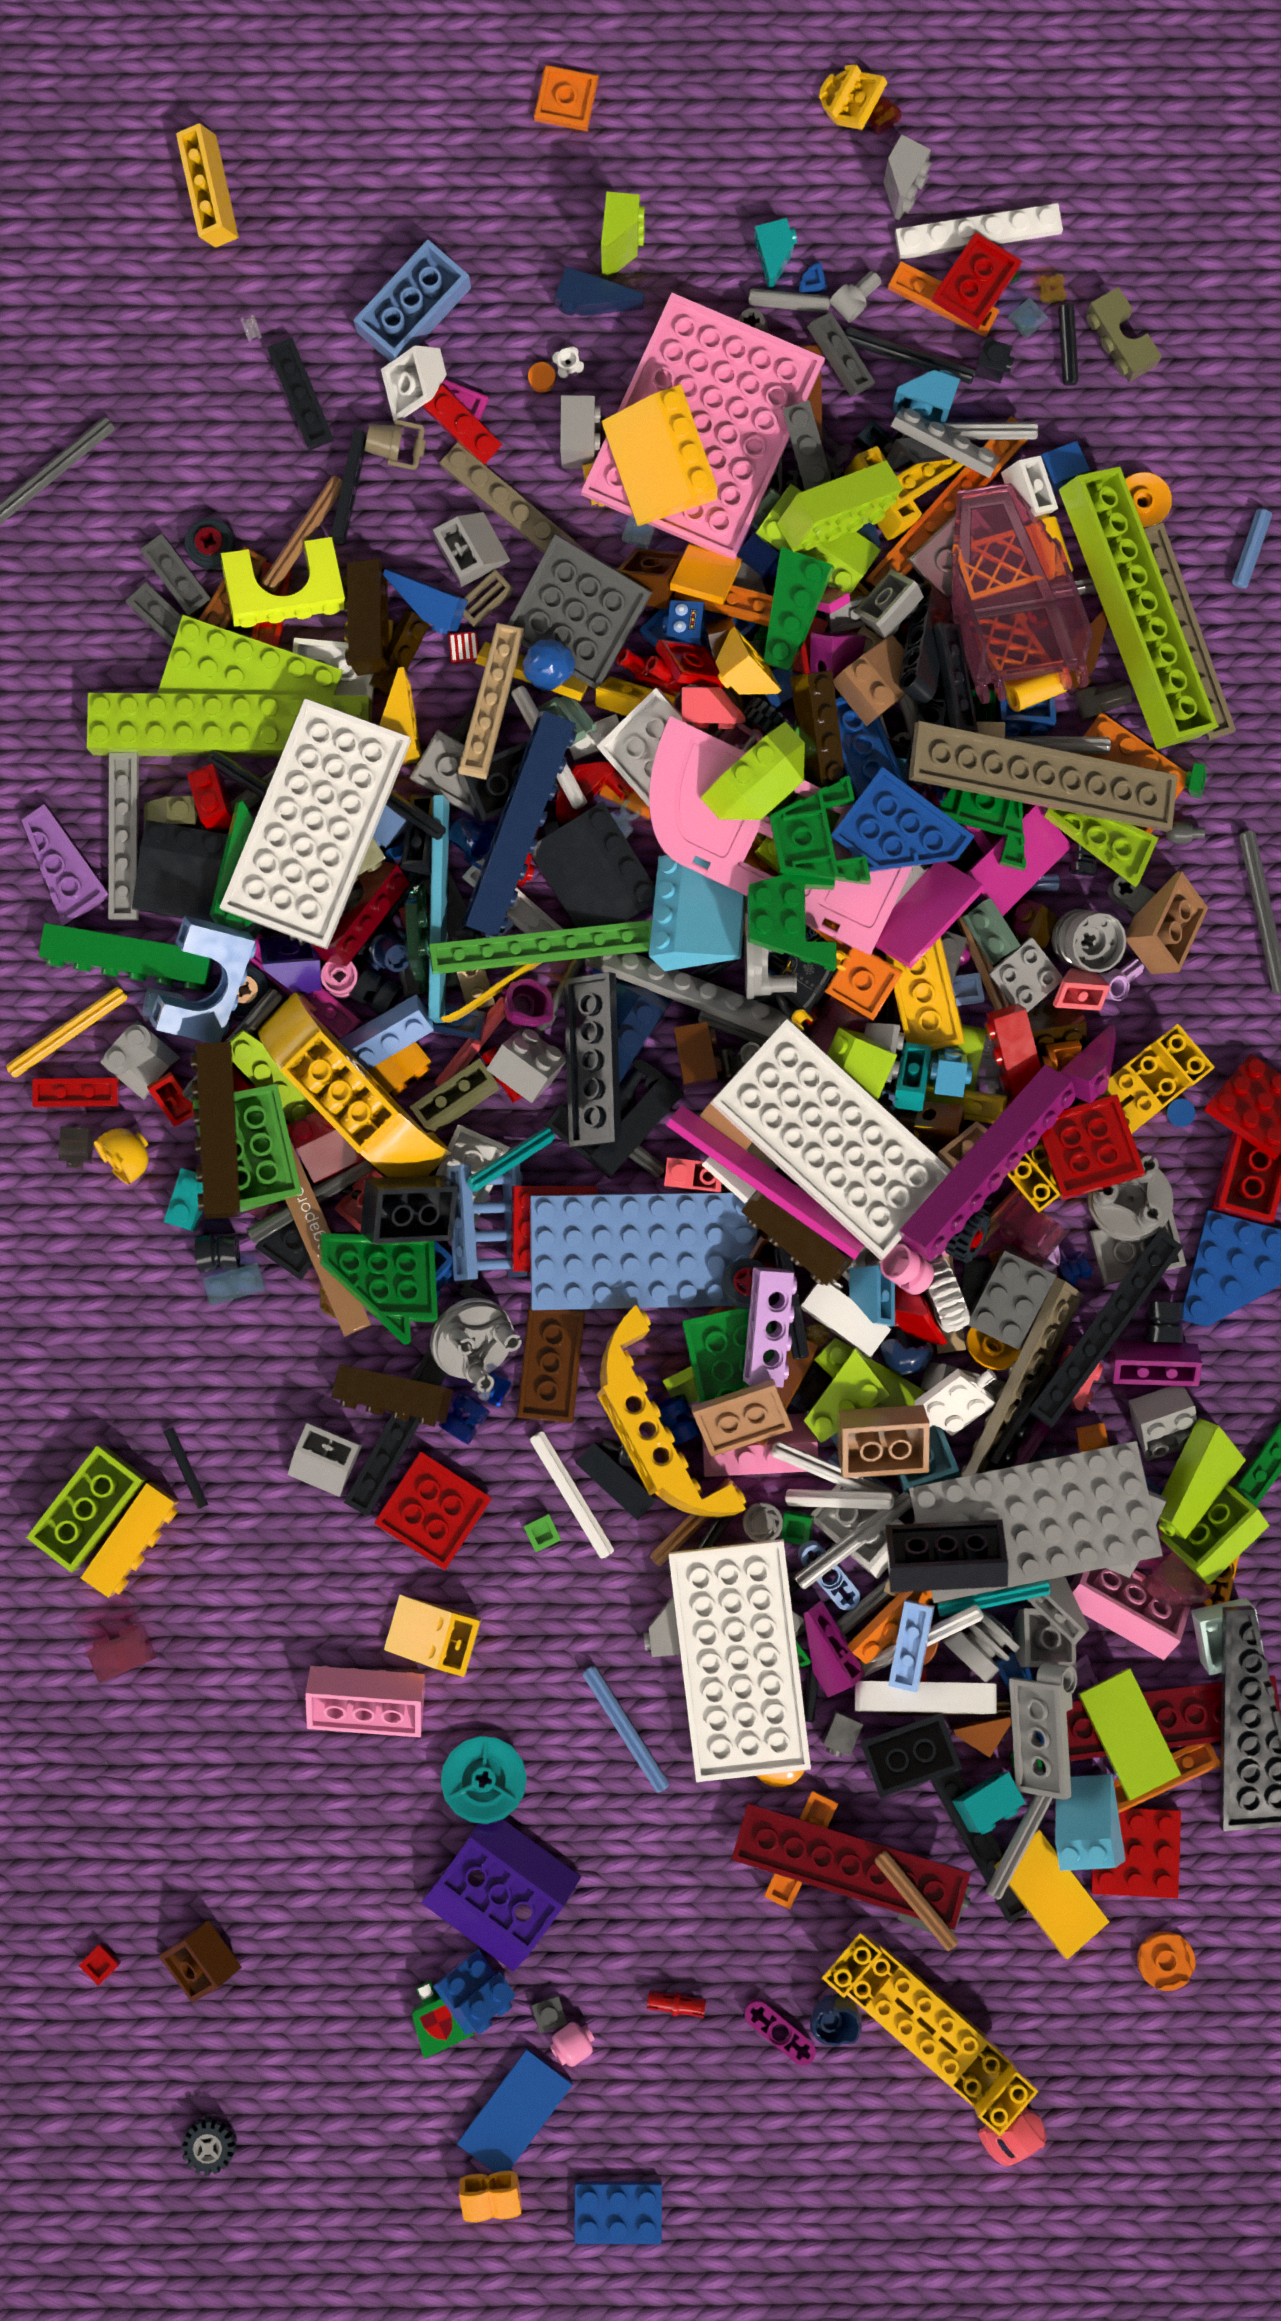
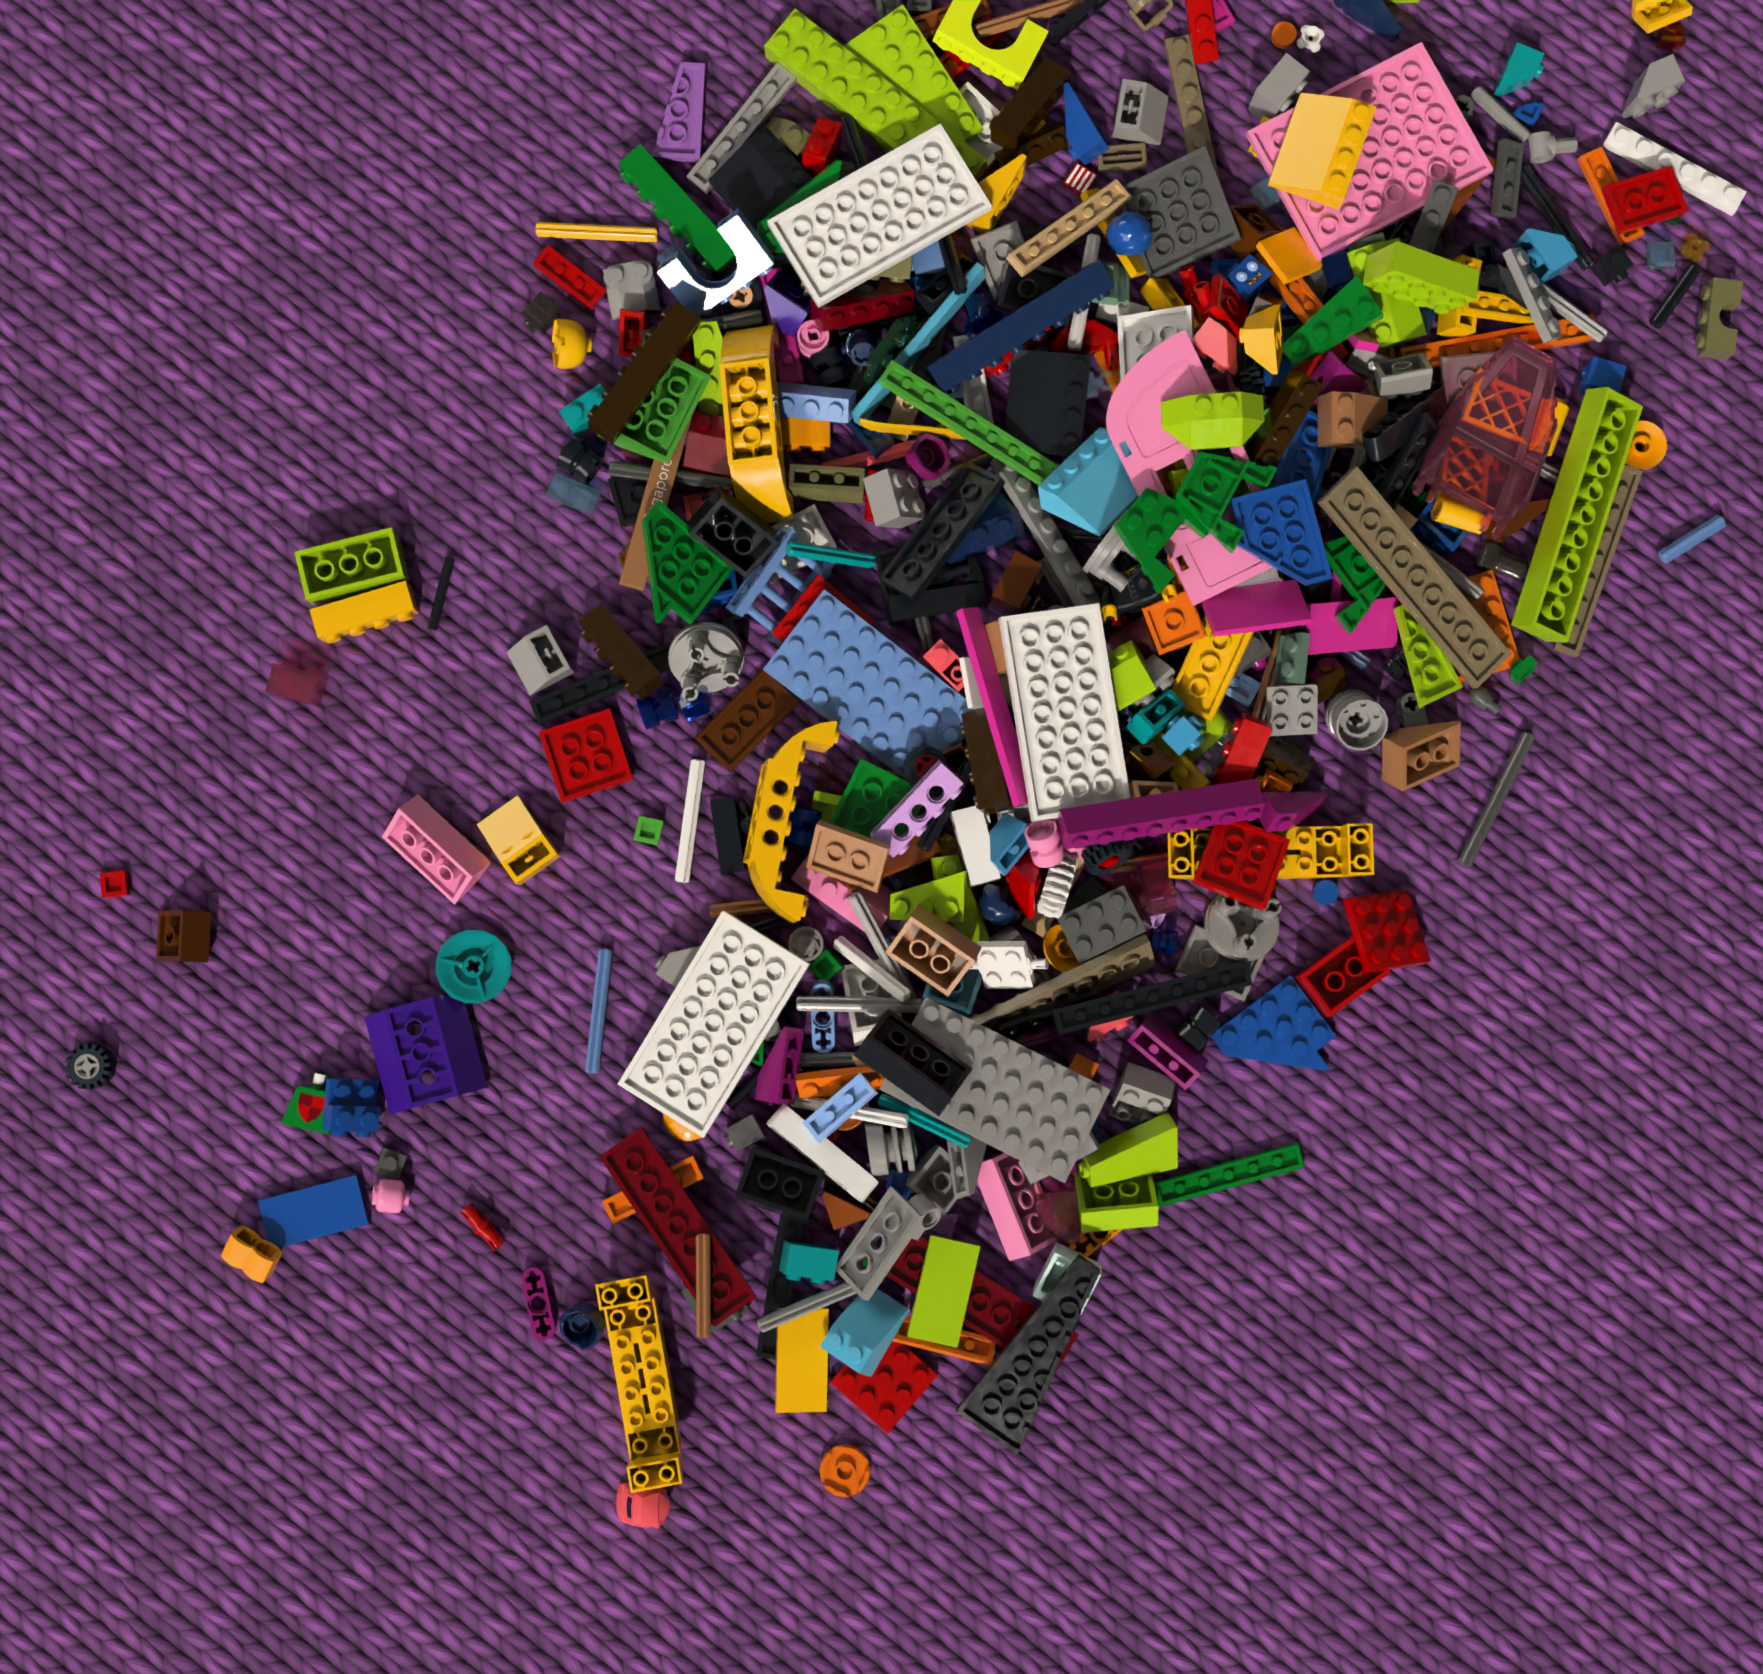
camera: 40 degrees right, 0 degrees up
(618, 2212) = (330, 1337): blue plate -> none
(1032, 483) = (1571, 371): white brick -> none
(1081, 990) = (1322, 750): coral slope -> none
(1120, 979) = (1355, 765): lavender axle -> none

